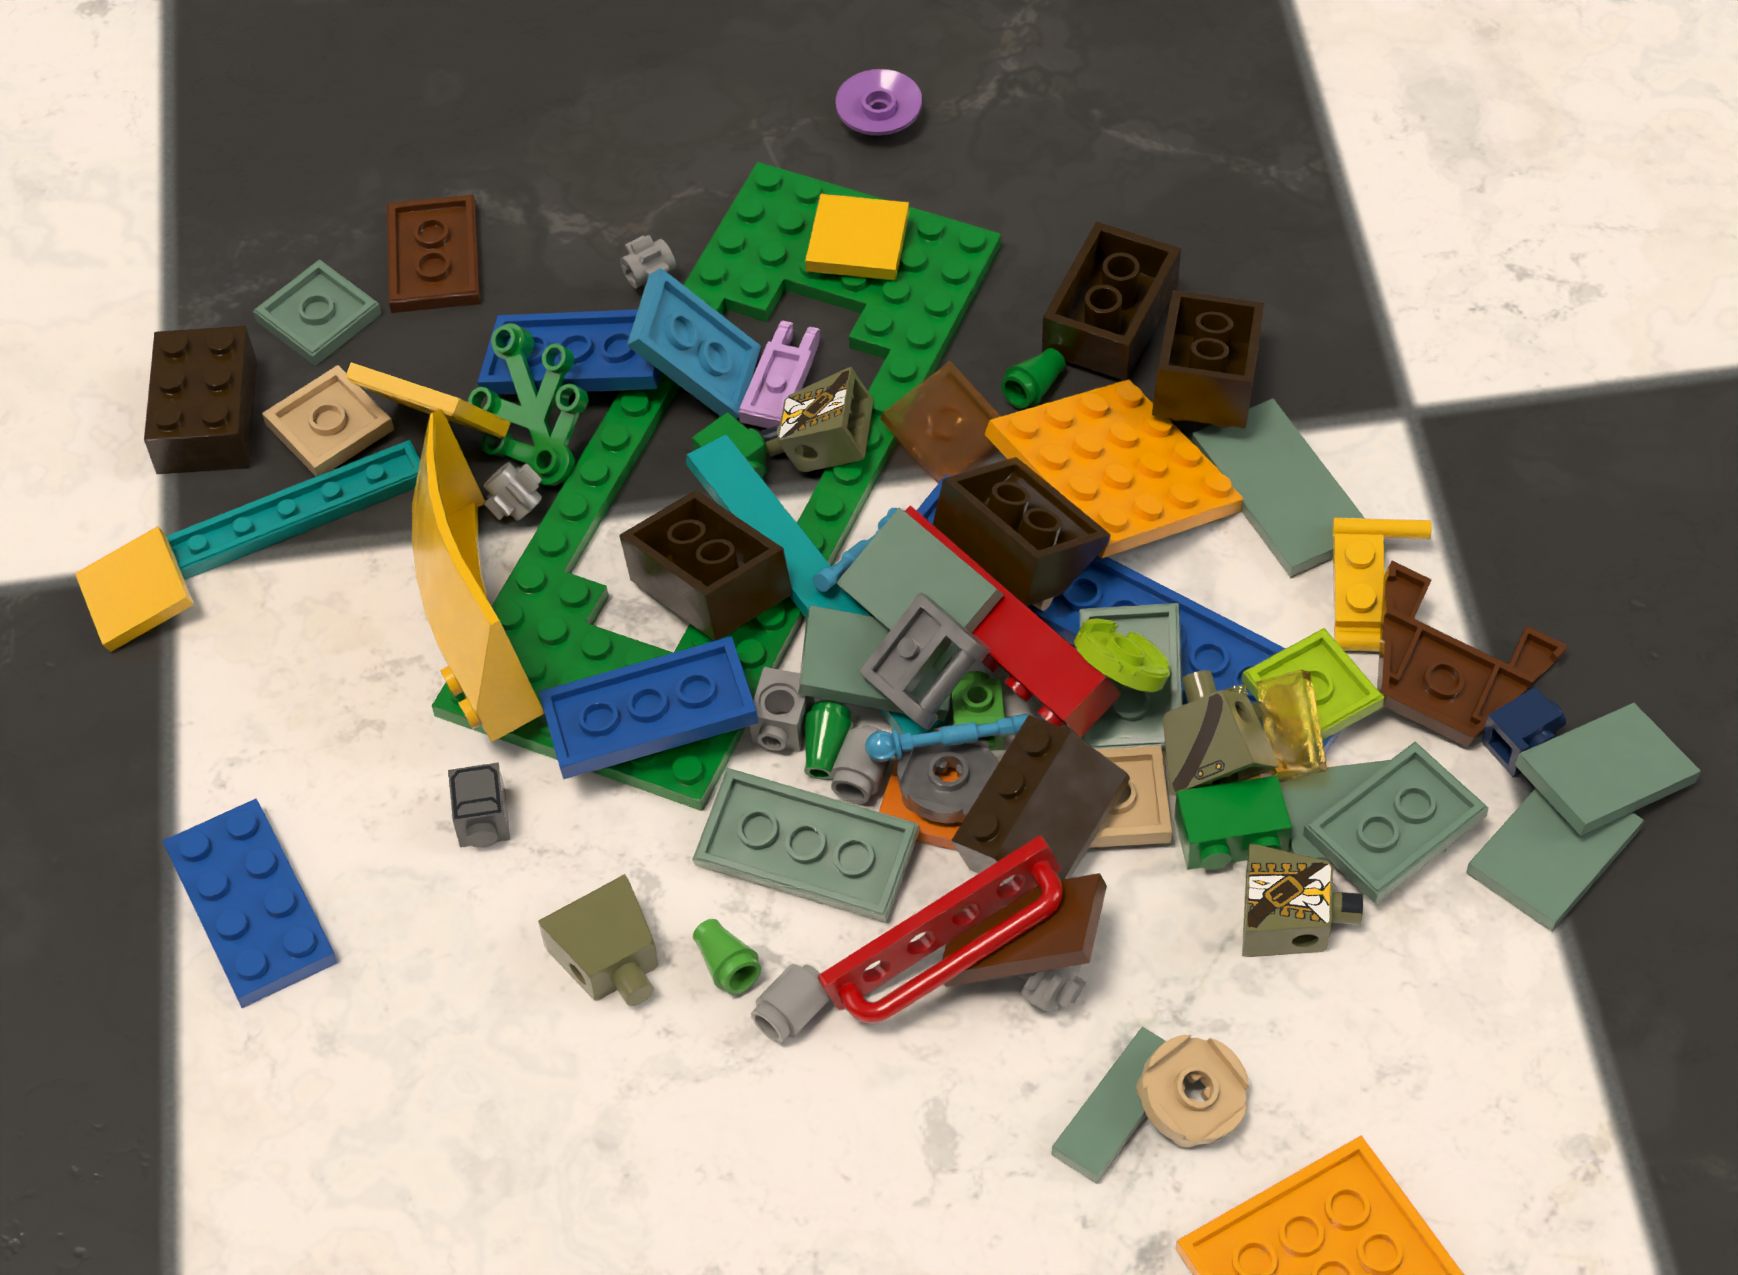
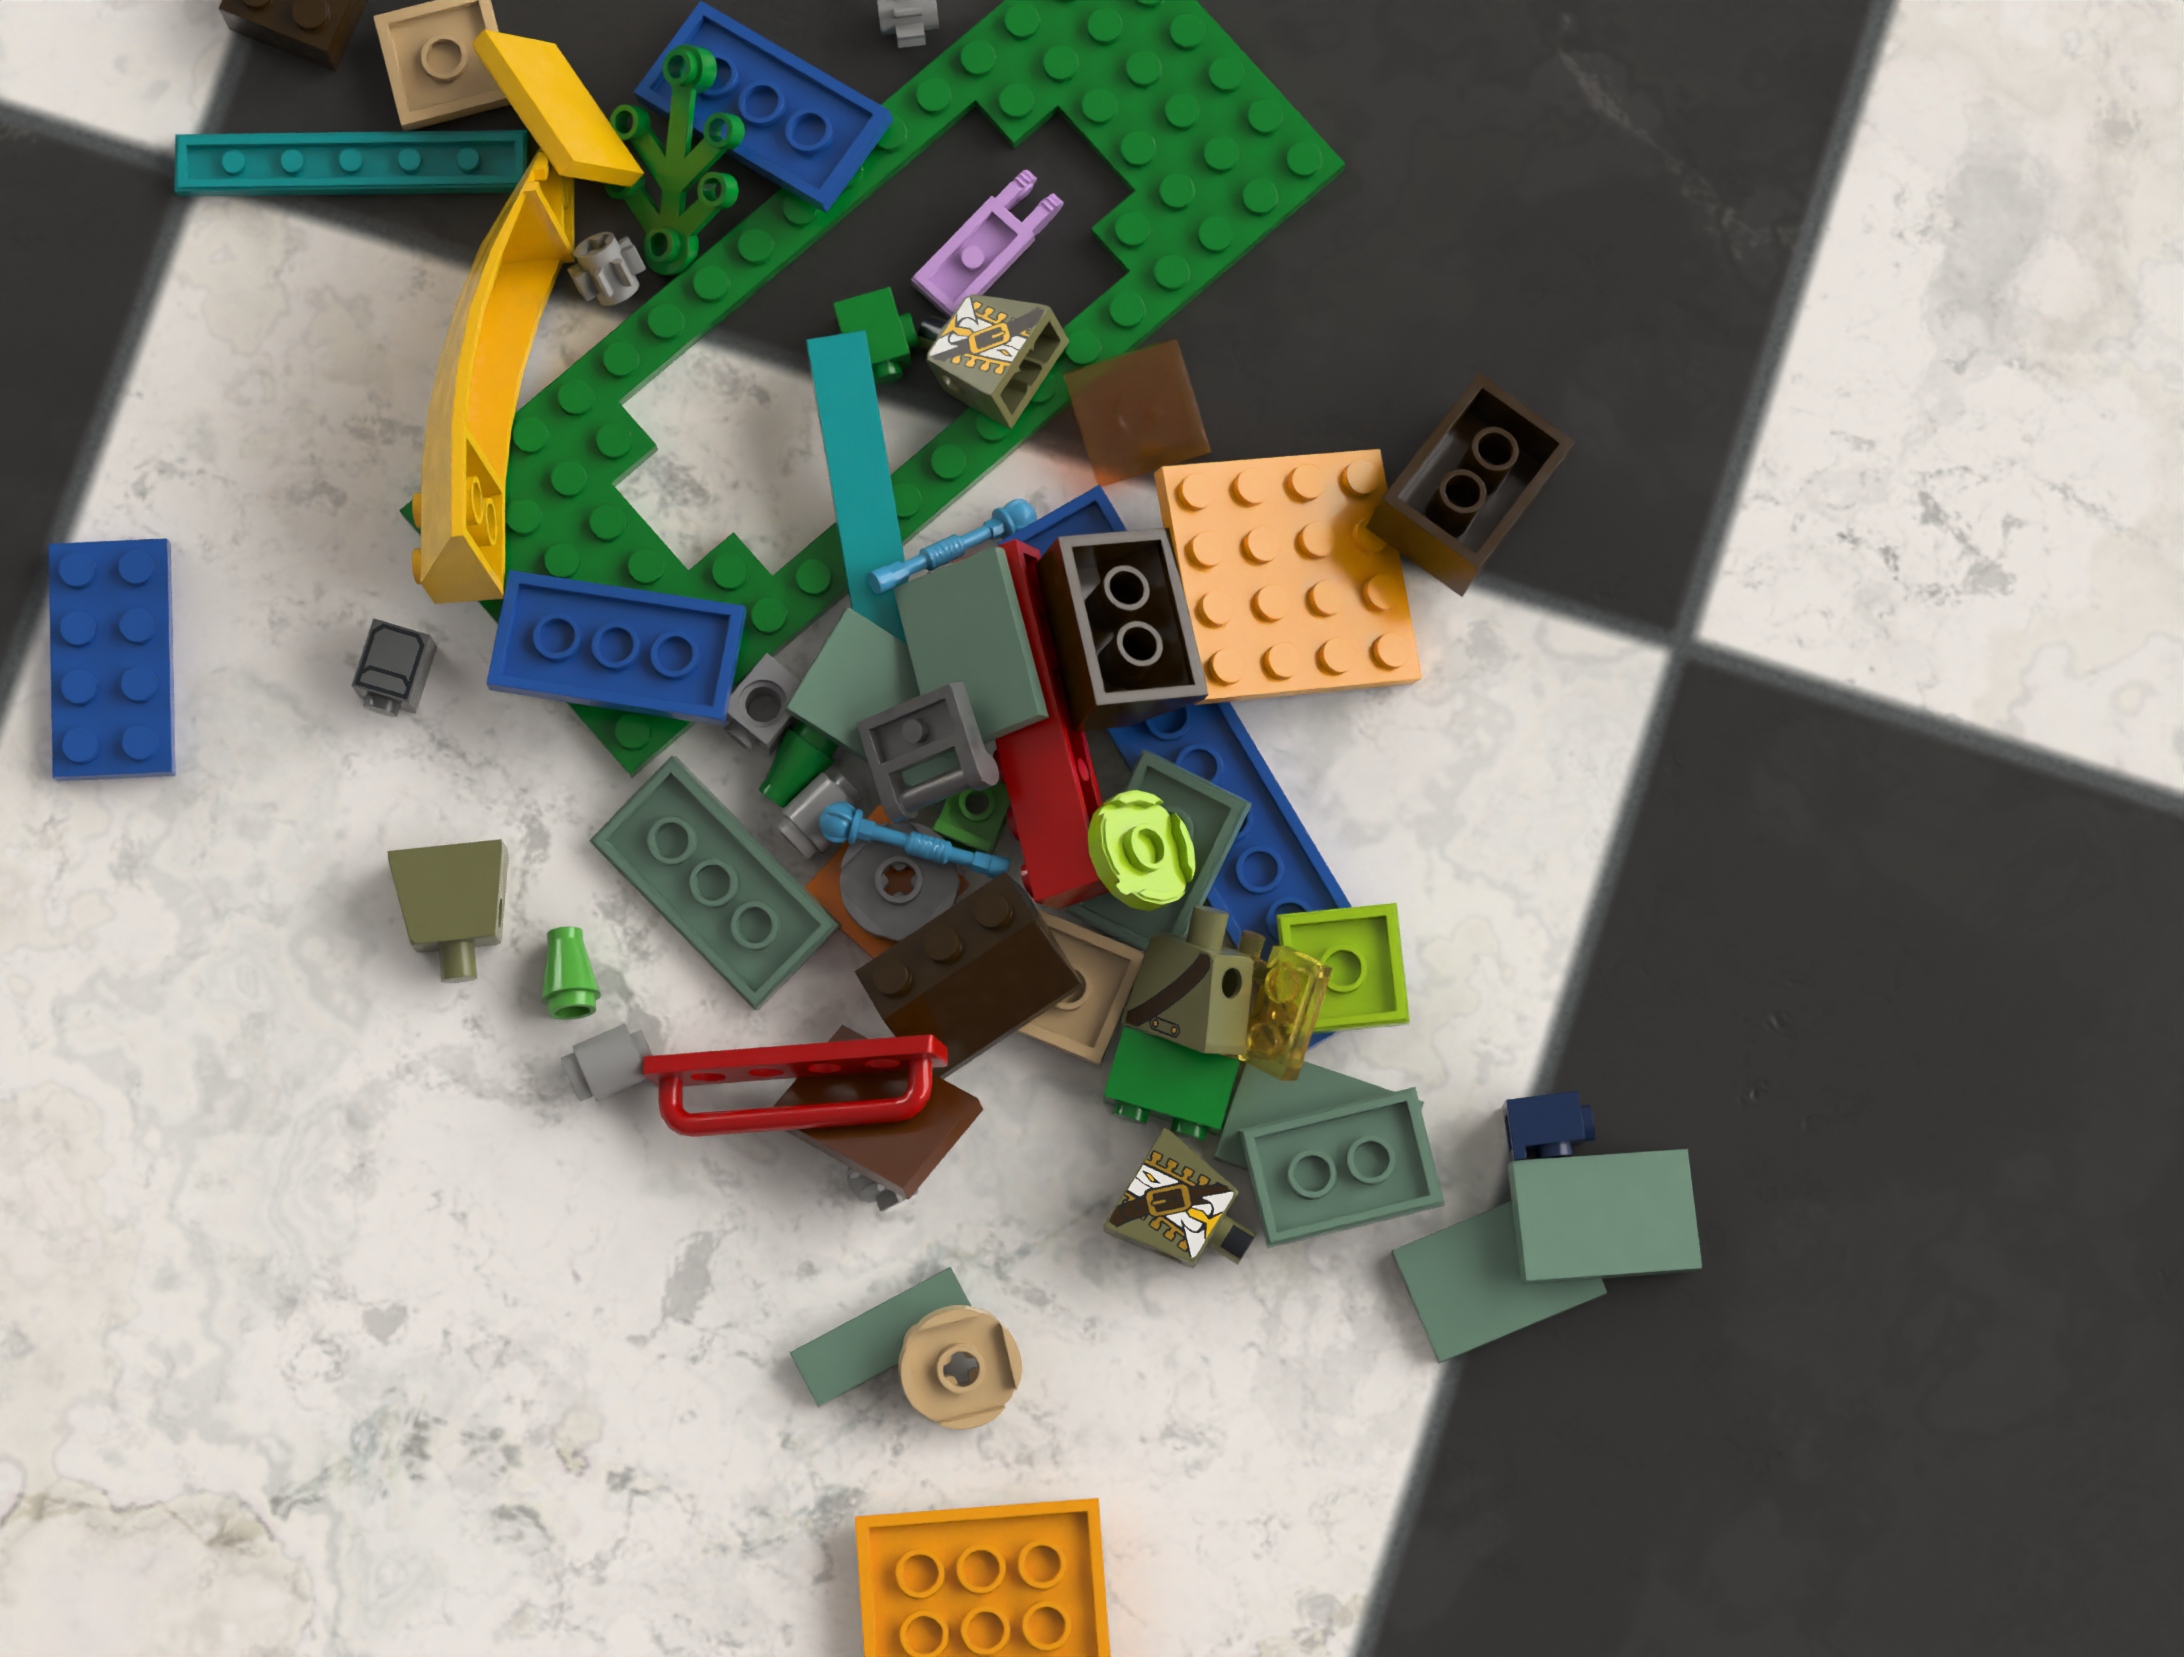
camera: 25 degrees right, 25 degrees up
(134, 589) = (139, 194): yellow tile -> none
(693, 344) = (893, 177): dark azure plate -> none
(706, 564) = (764, 490): dark brown brick -> none
(857, 237) = (1165, 98): yellow tile -> none
(1030, 380) = (1271, 393): green cone -> none
(1111, 300) = (1411, 337): dark brown brick -> none
(1283, 485) = (1474, 684): sand green tile -> none
(1360, 575) = (1481, 854): yellow plate -> none
(1444, 679) = (1494, 1019): reddish brown wing -> none

